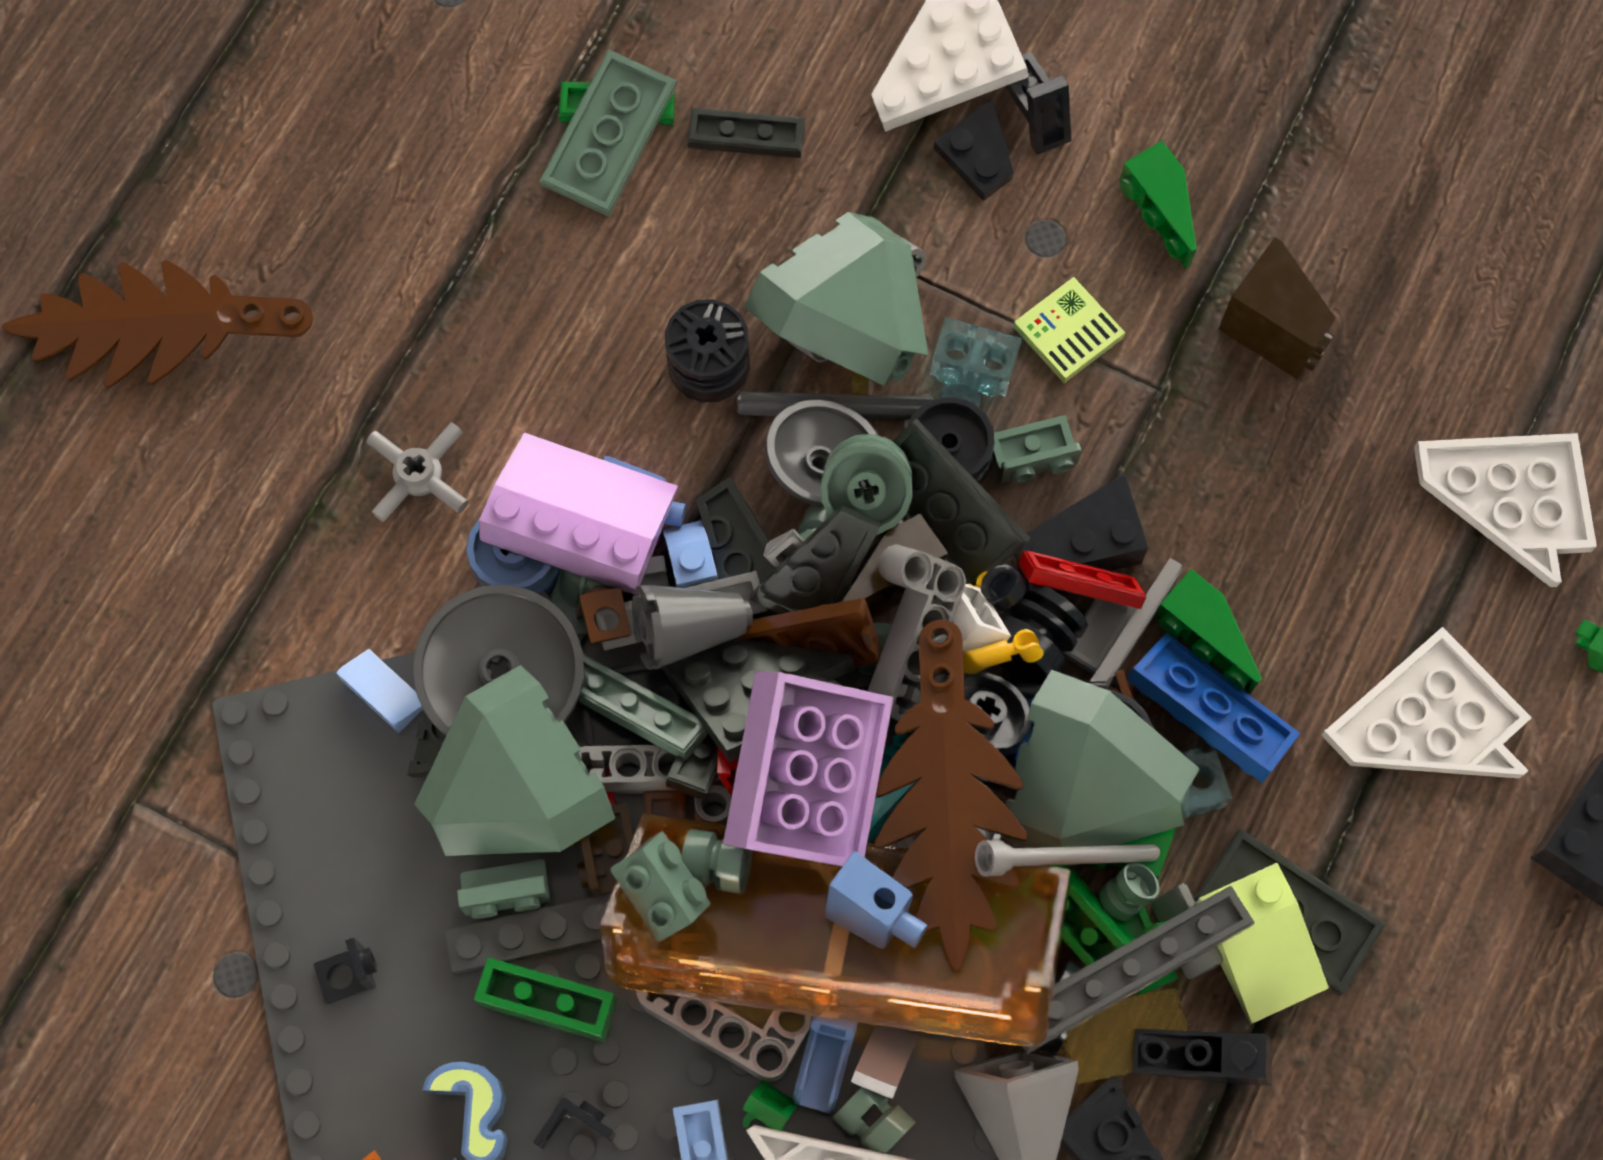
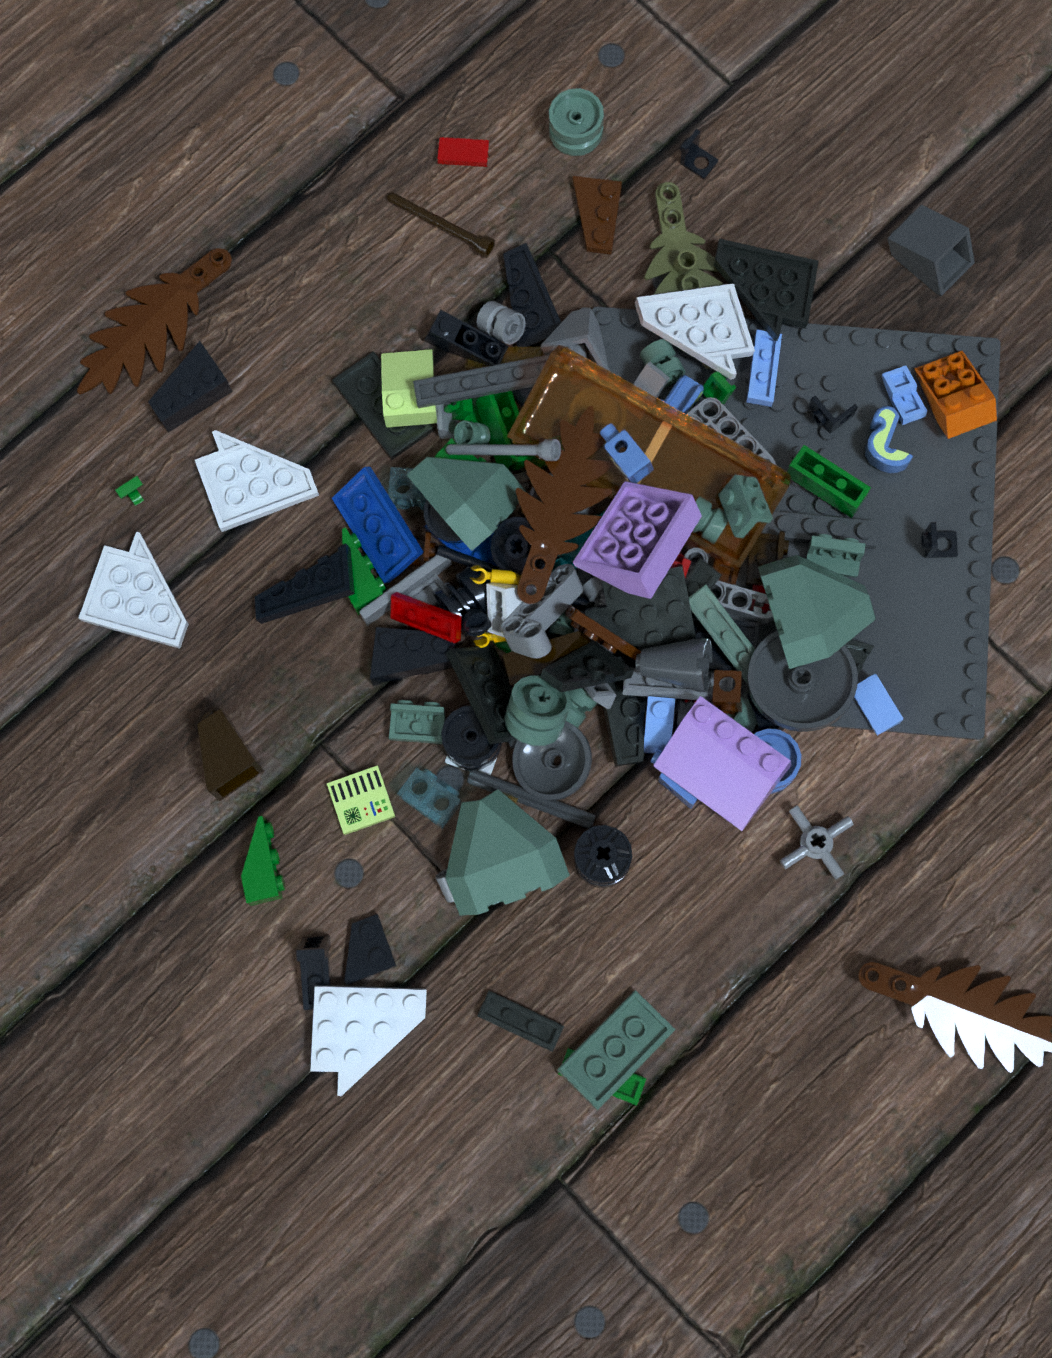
camera: 155 degrees left, 5 degrees up
(1160, 1102) = (501, 322): none -> light grey wheel
(1264, 581) = (309, 588): none -> black wing

